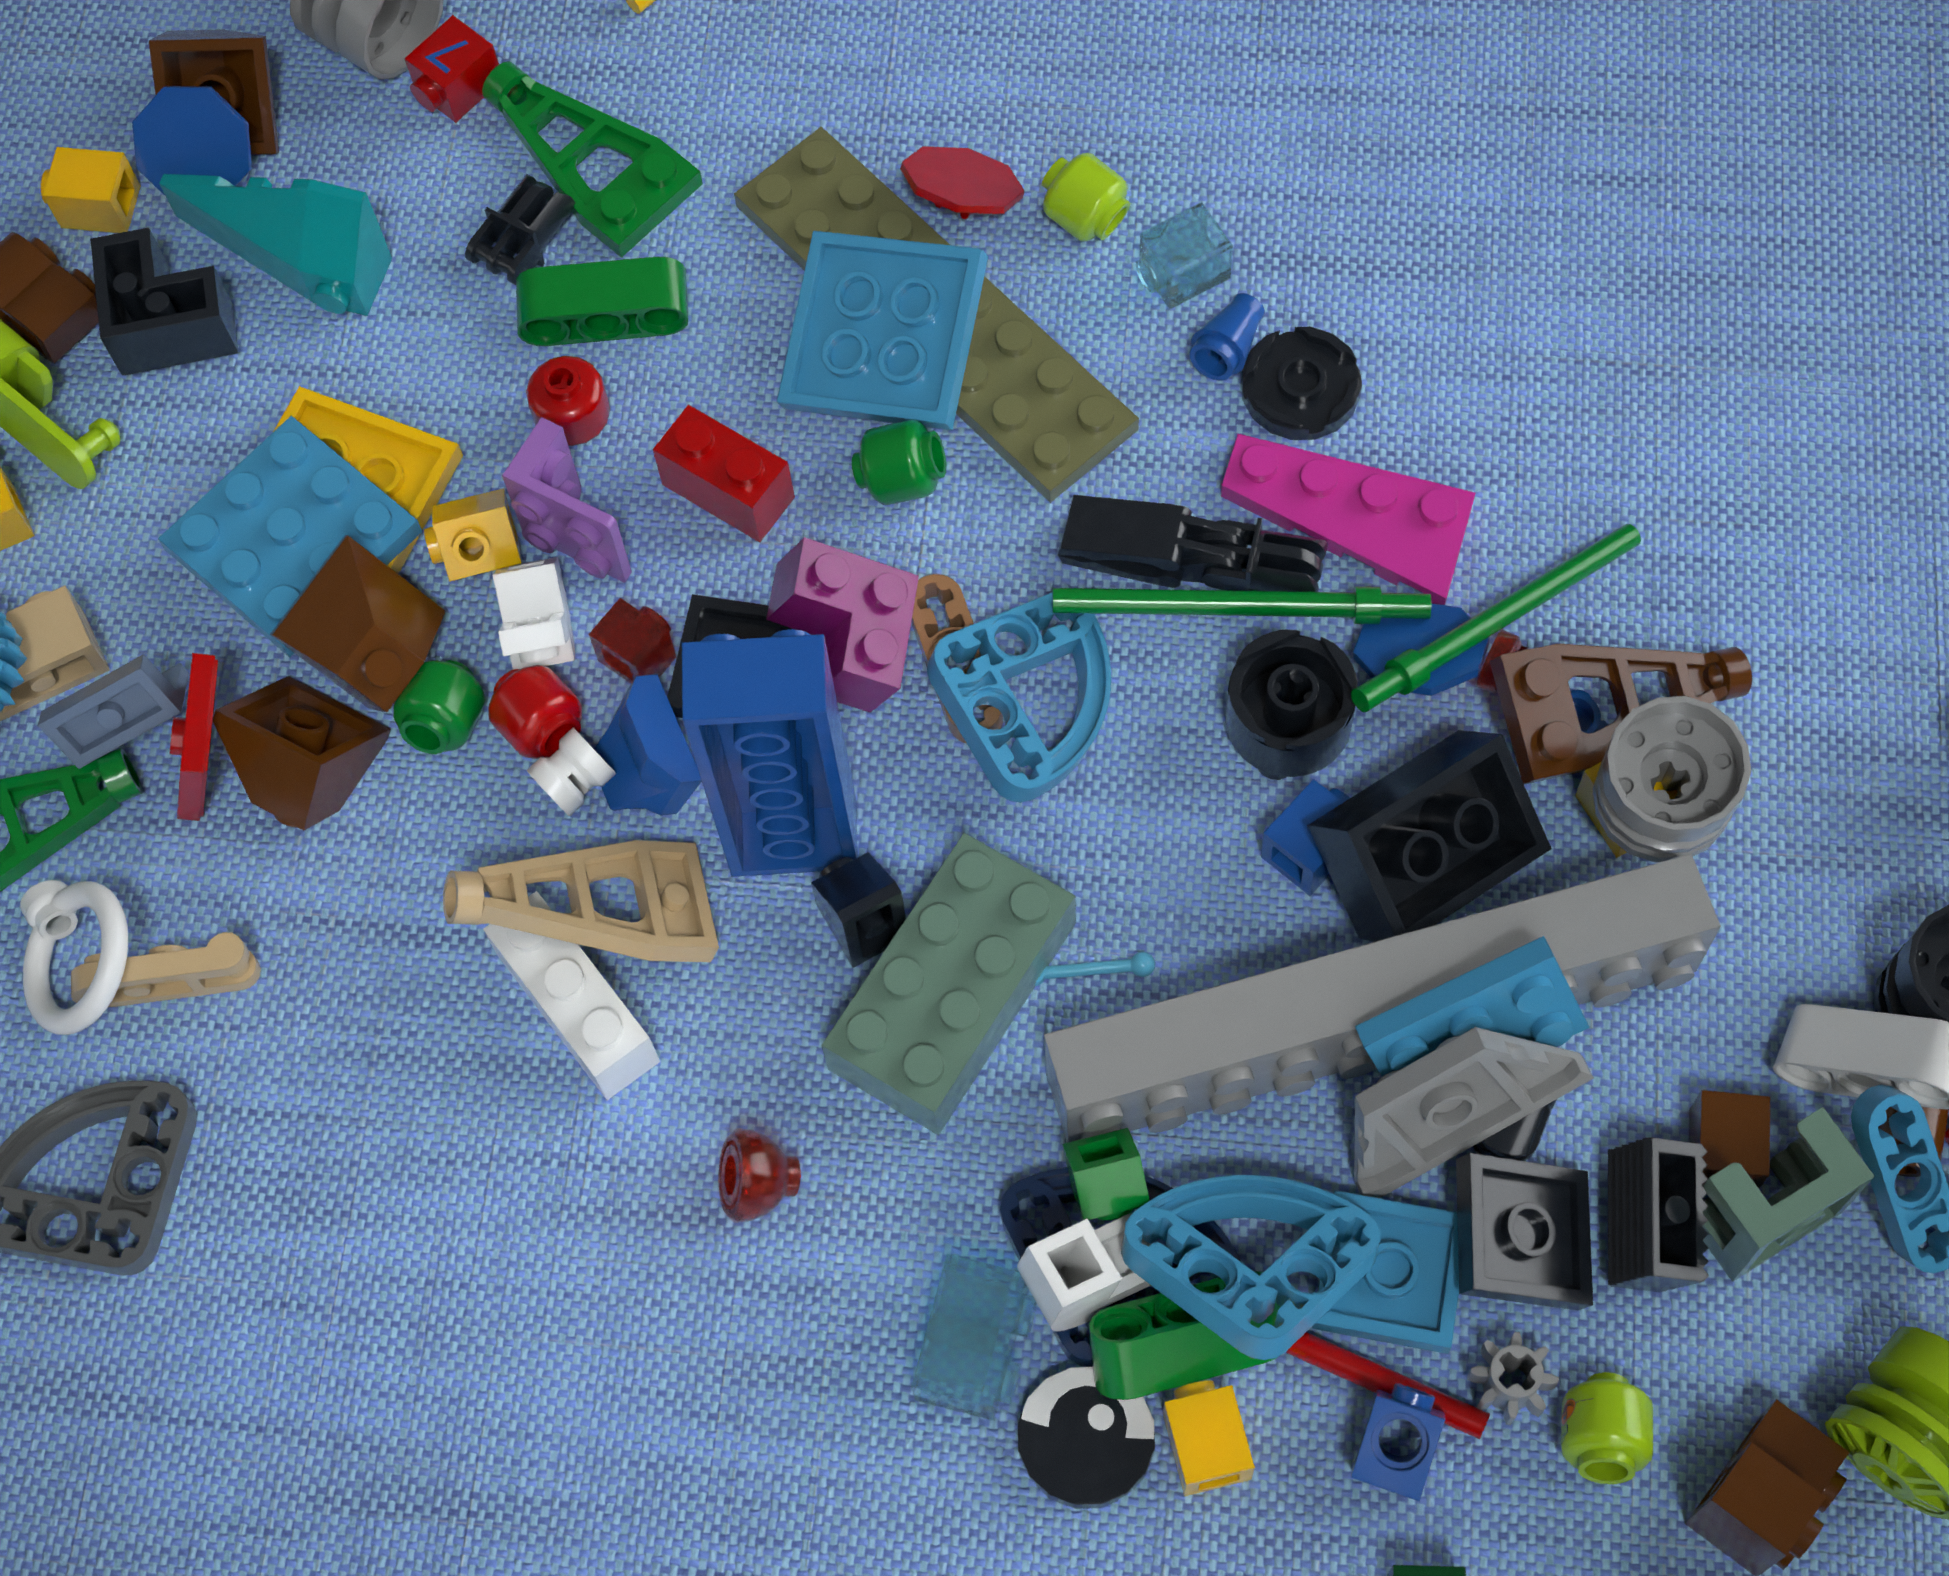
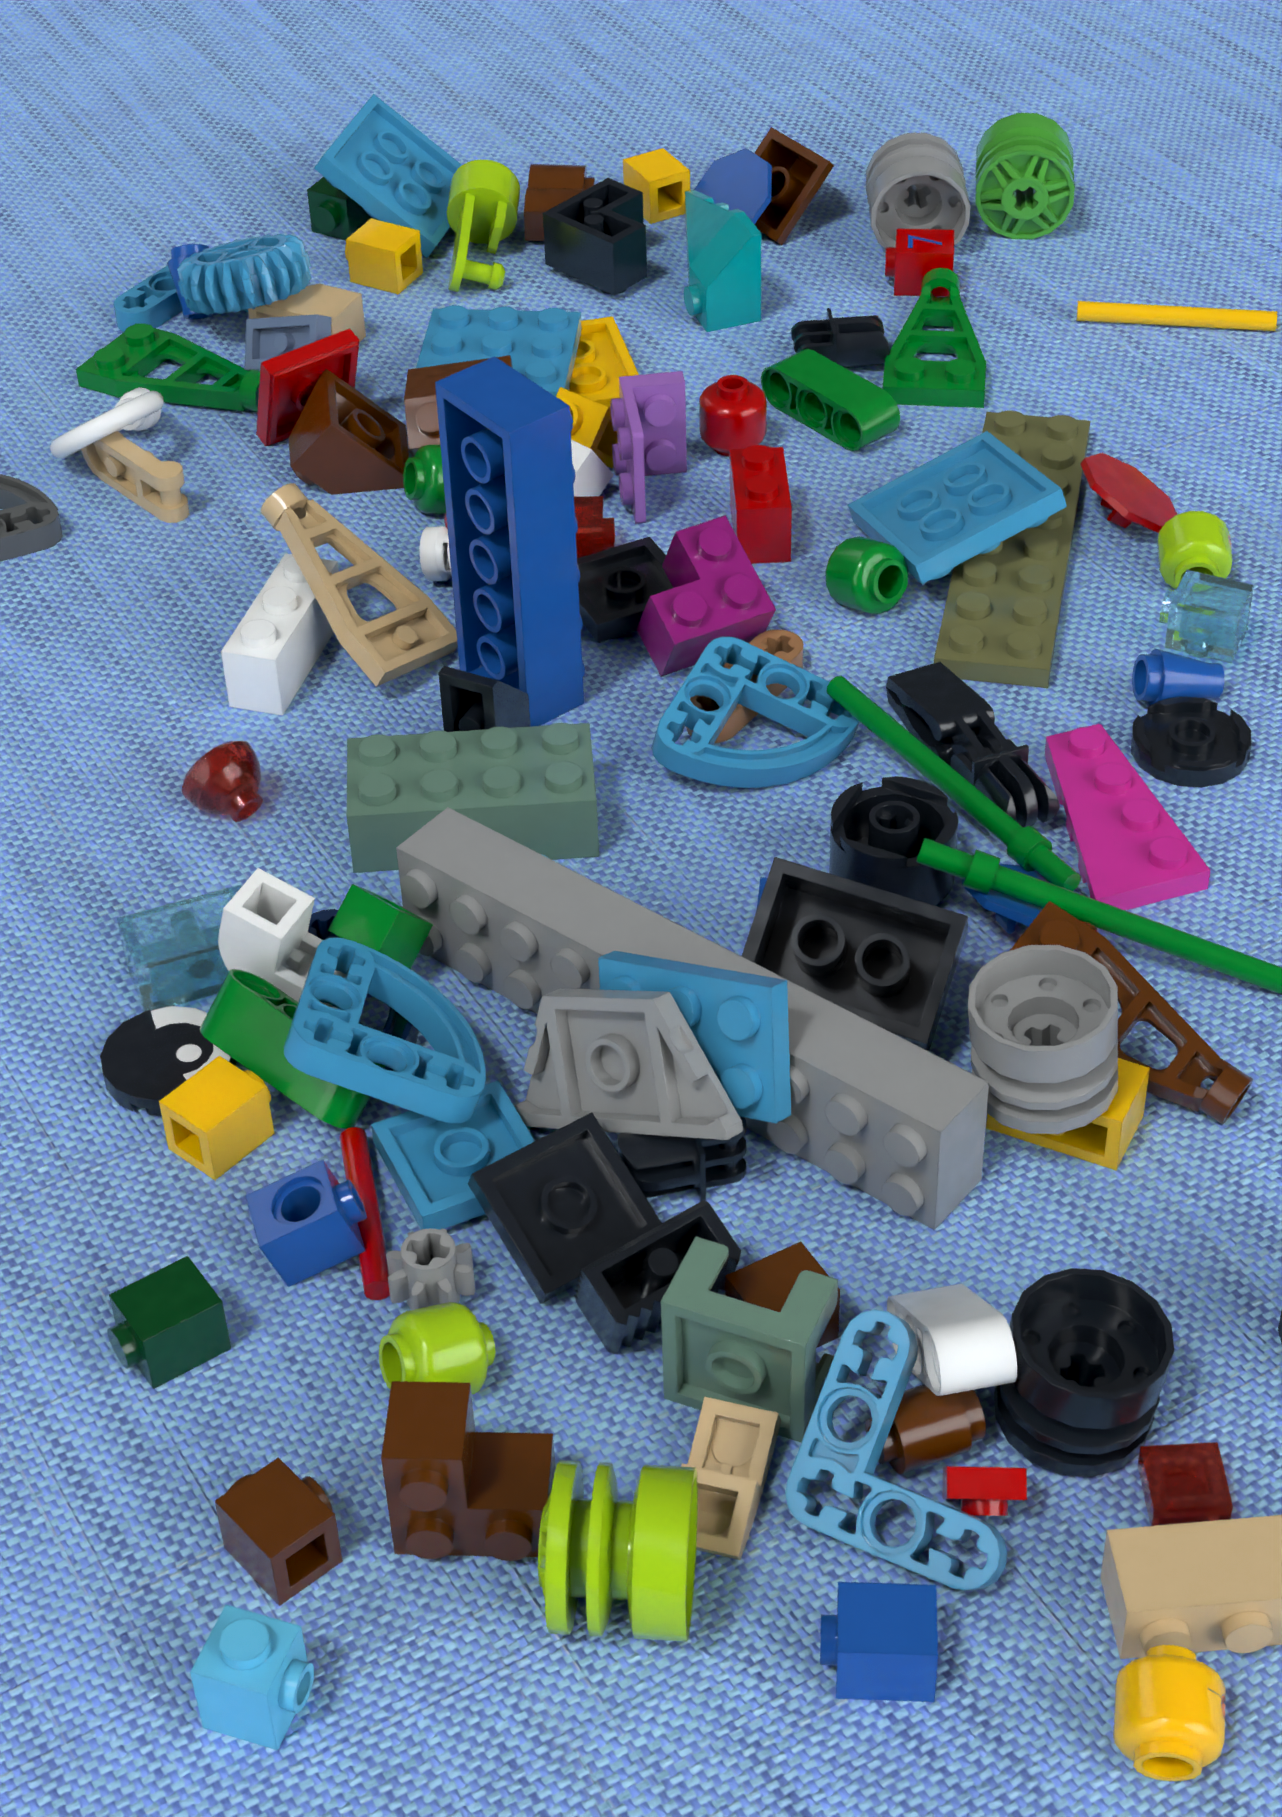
camera: 50 degrees right, 25 degrees down
(1850, 1290) = (732, 1464): none -> tan slope

